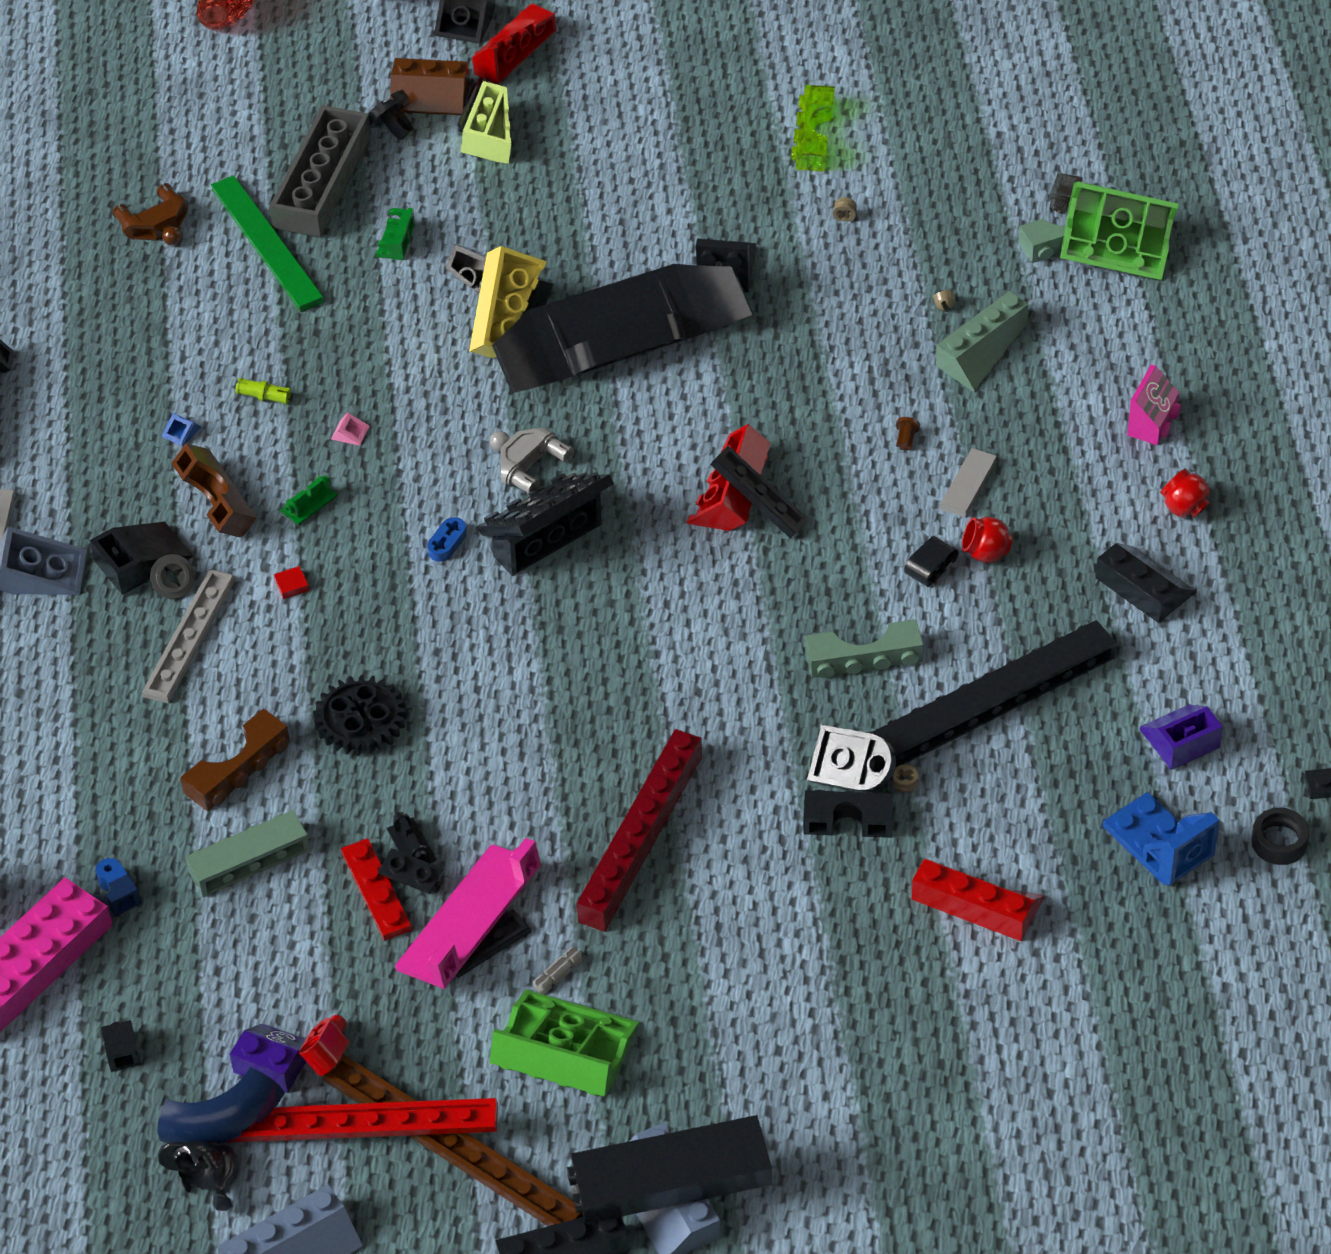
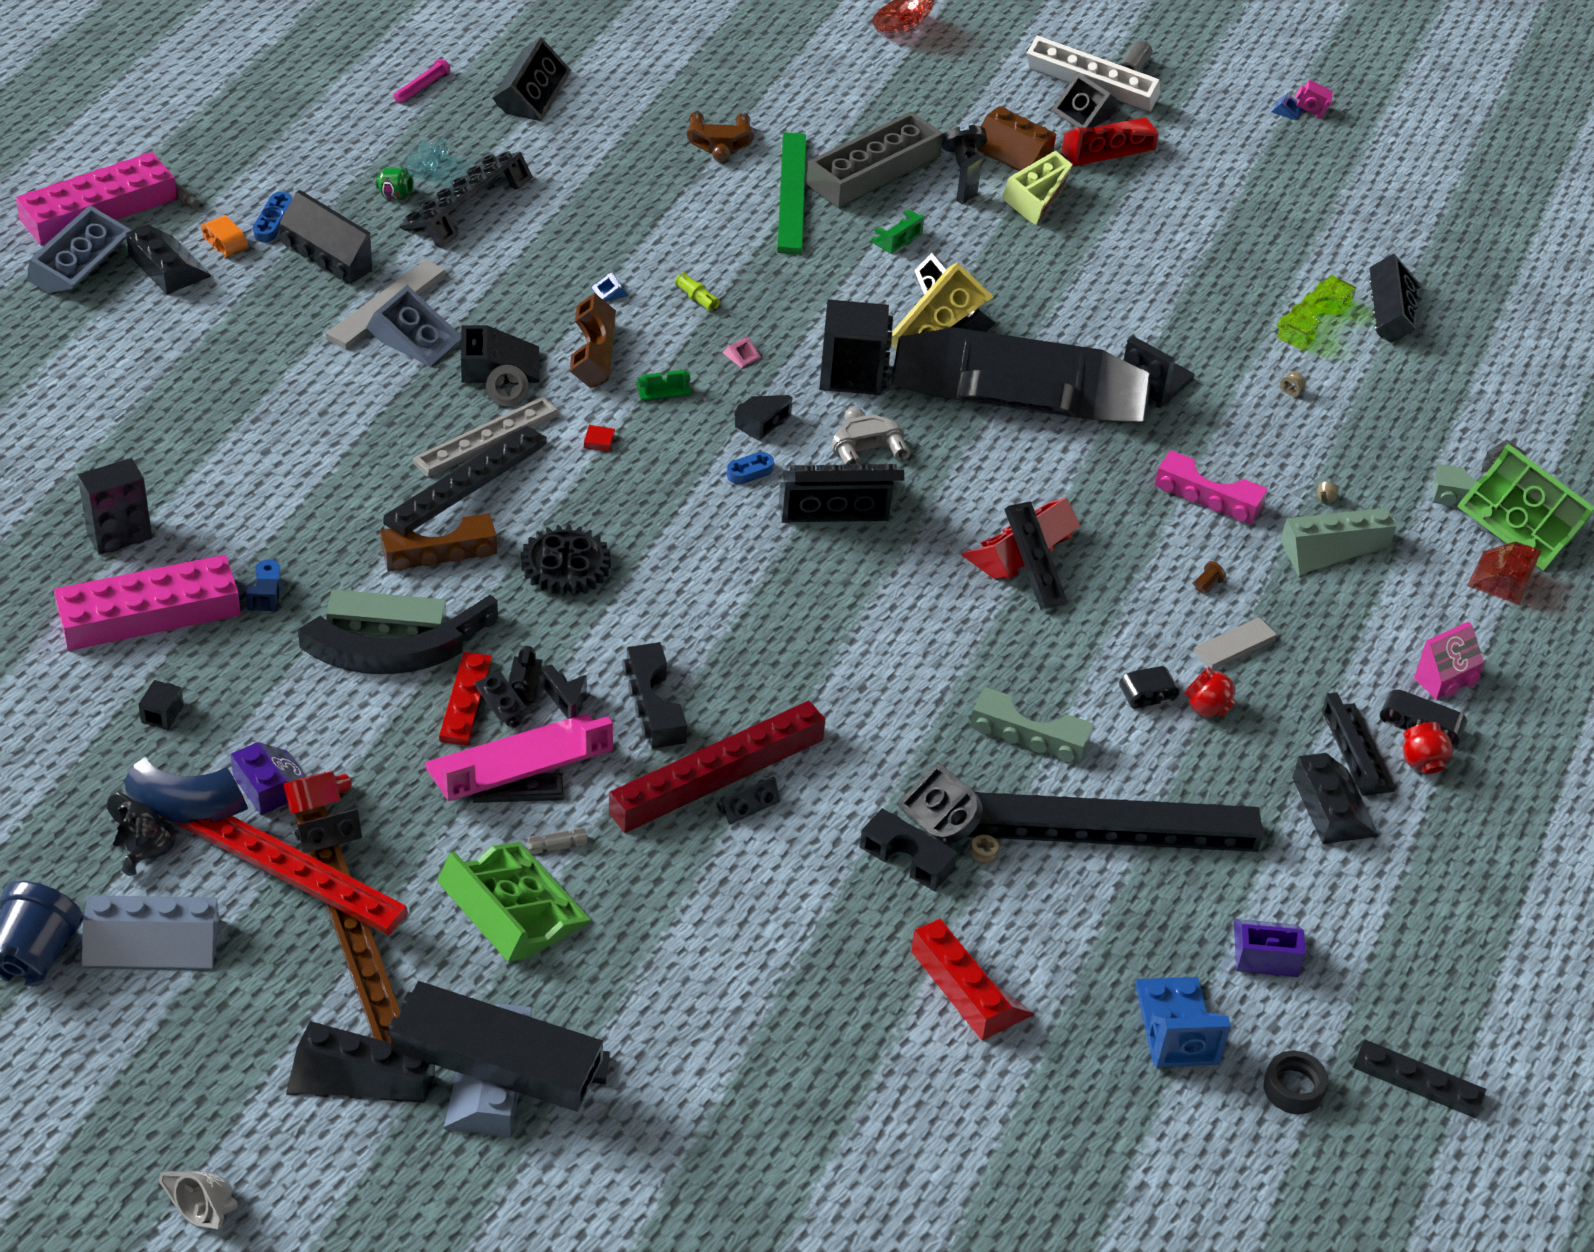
camera: 25 degrees right, 5 degrees down
(212, 689) = (464, 481): none -> black plate
(275, 892) = (400, 654): none -> black arch
(369, 1073) = (329, 831): none -> black hinge
(418, 483) = (762, 414): none -> black slope
(424, 149) = (969, 179): none -> black tile
(459, 374) = (856, 347): none -> black container
(460, 839) = (566, 695): none -> black slope
(561, 815) = (662, 720): none -> black arch
(688, 841) = (749, 800): none -> black hinge
(818, 351) = (1239, 500): none -> dark pink arch
(870, 80) = (1393, 298): none -> black wedge
(1127, 522) = (1353, 749): none -> black fence
(1136, 297) = (1505, 571): none -> clear red slope
(1160, 466) = (1410, 710): none -> black beam

